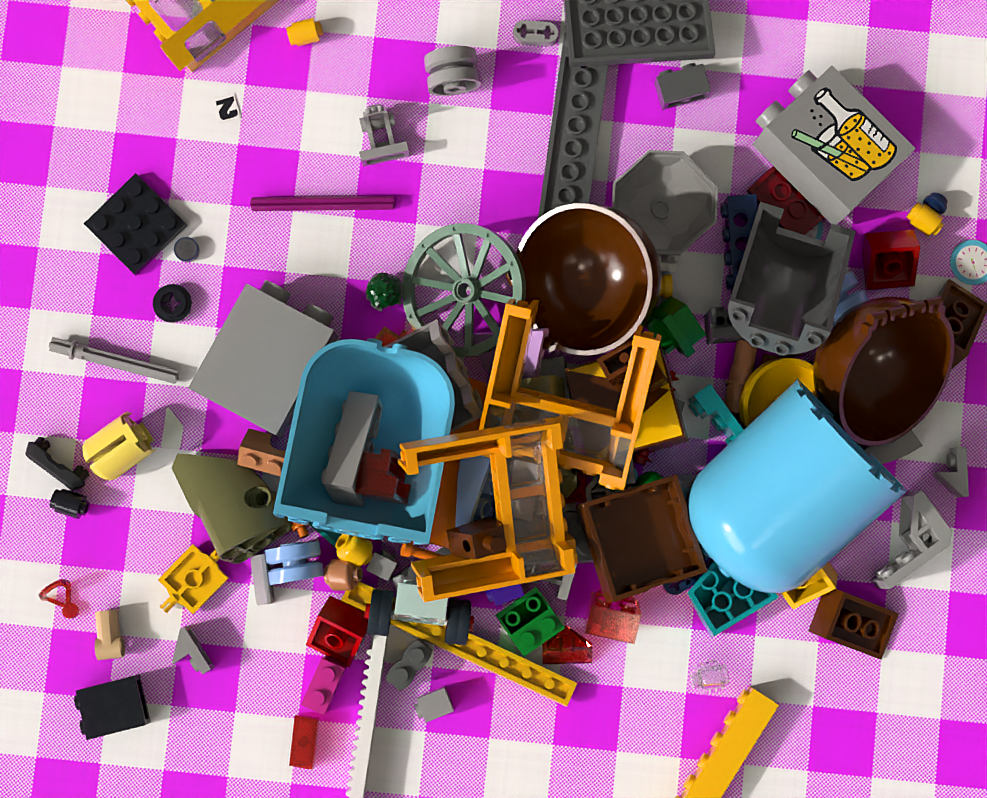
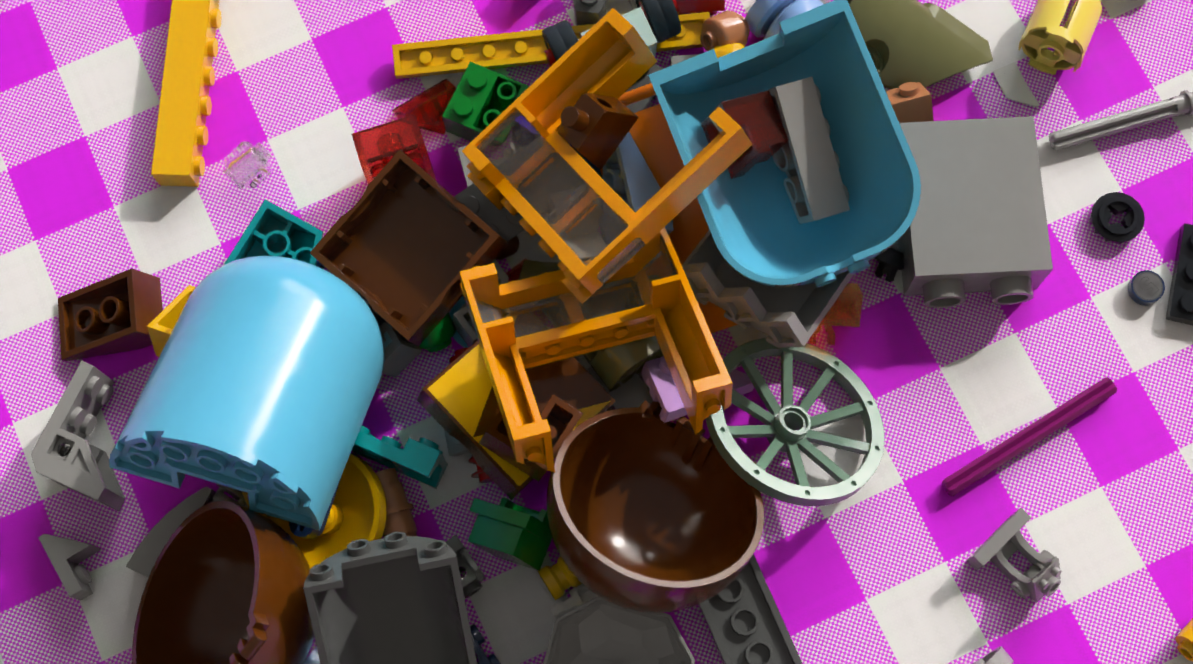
camera: 155 degrees right, 10 degrees down
(384, 291) = (886, 371): dark green piece -> none

